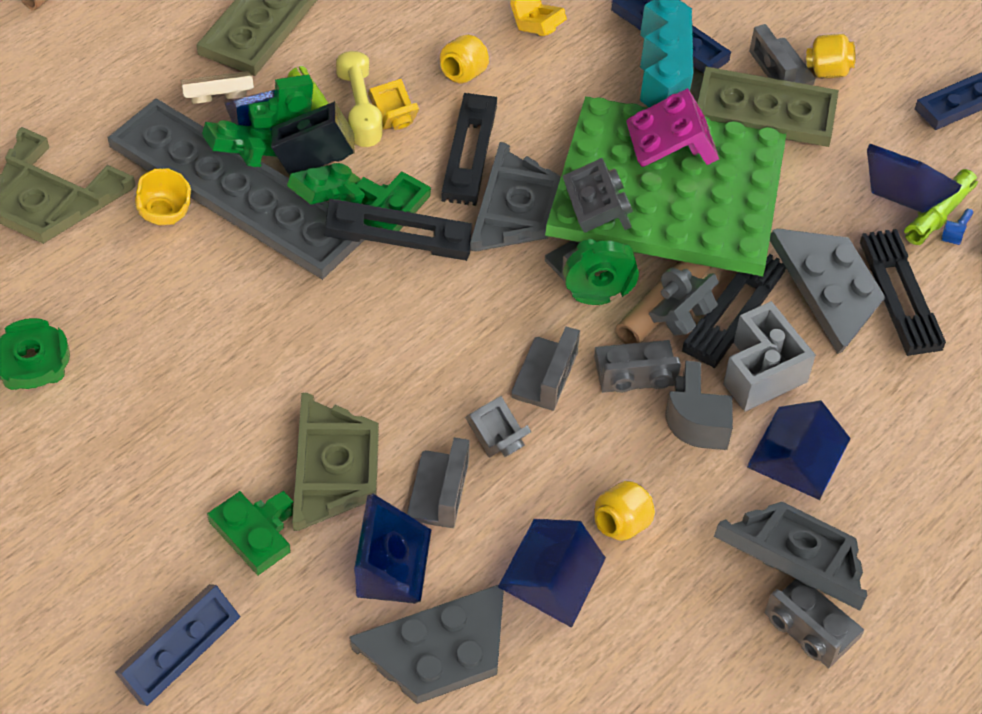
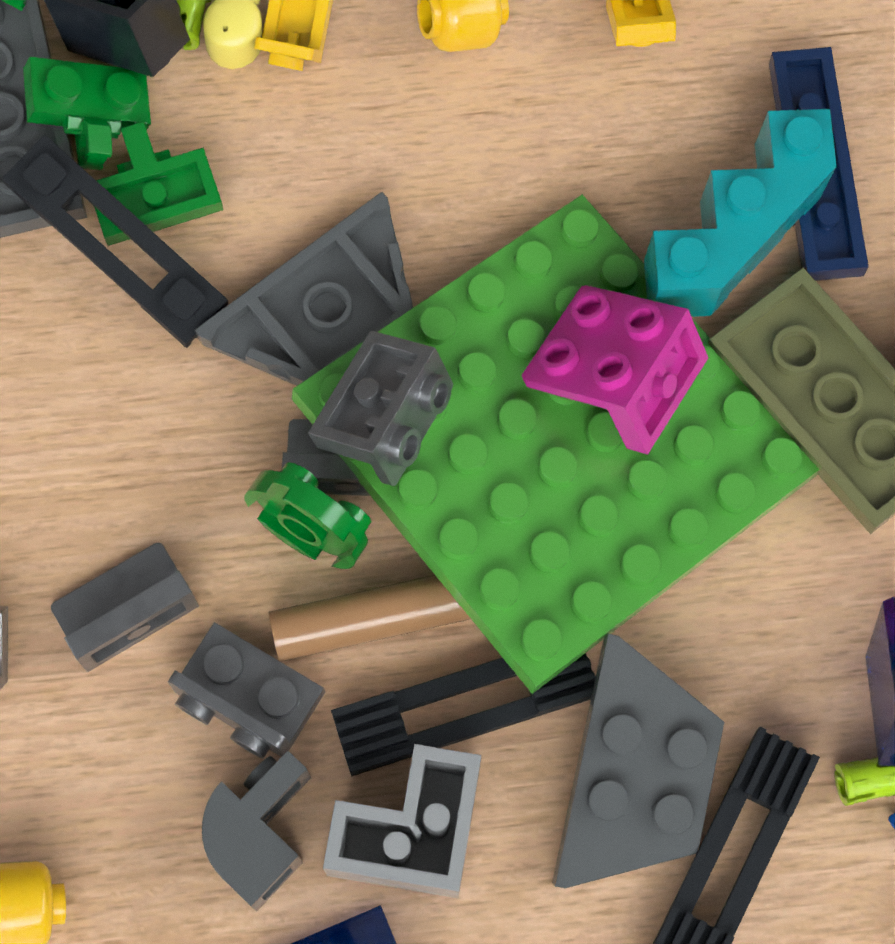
camera: 40 degrees right, 20 degrees up
(464, 183) = (285, 223): black container -> none
(682, 294) = (381, 646): dark grey hips -> none

